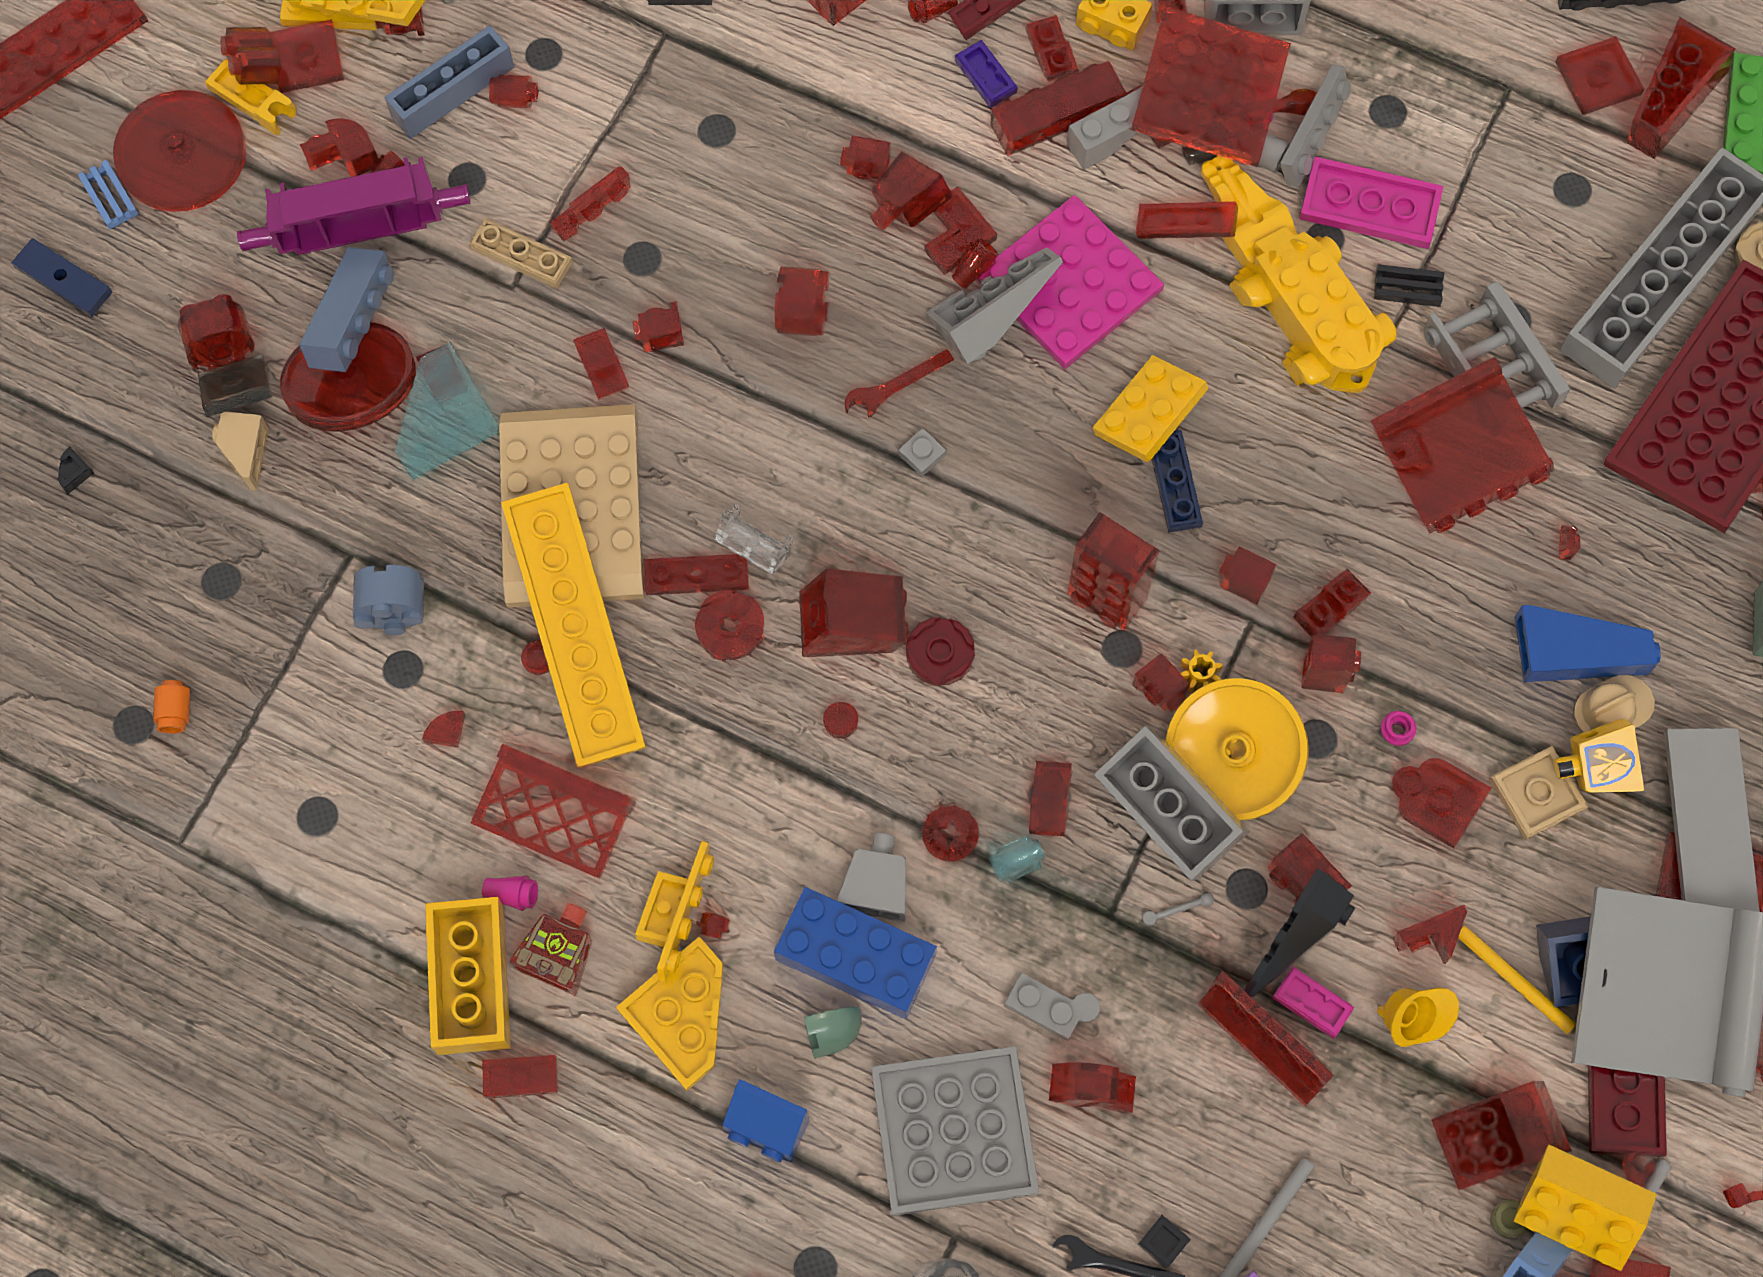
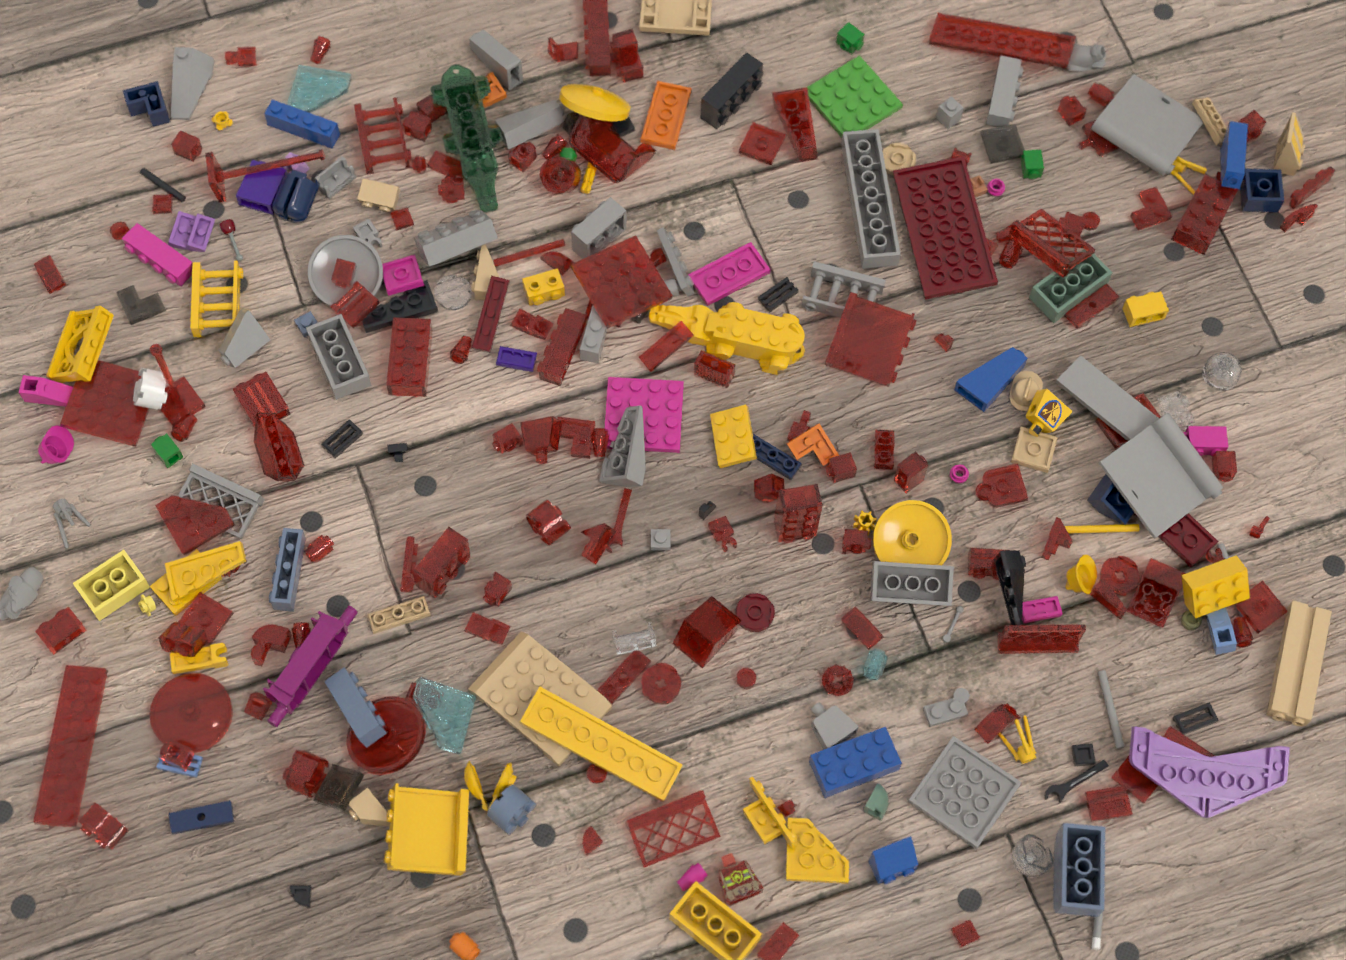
camera: 50 degrees left, 5 degrees down
(105, 180) = (185, 754): none -> clear red brick
(253, 209) = (257, 705): none -> clear red slope
(271, 528) = (427, 830): none -> yellow panel
(385, 529) = (473, 783): none -> yellow animal
(626, 233) = (442, 563): none -> clear red brick
(724, 58) = (398, 450): none -> black tile
(841, 381) = (599, 540): none -> clear red slope
(1009, 513) = (722, 531): none -> clear red plate
(1015, 468) = (706, 509): none -> black tile
(1087, 1161) = (1026, 752): none -> yellow plant
(1125, 509) = (767, 487): none -> clear red brick
(1216, 302) = (714, 369): none -> clear red brick
(1246, 483) = (799, 428): none -> clear red plate
(1247, 506) = (815, 440): none -> orange plate
(1422, 1070) = (1106, 596): none -> clear red slope
(1484, 1047) = (1129, 570): none -> clear red plate

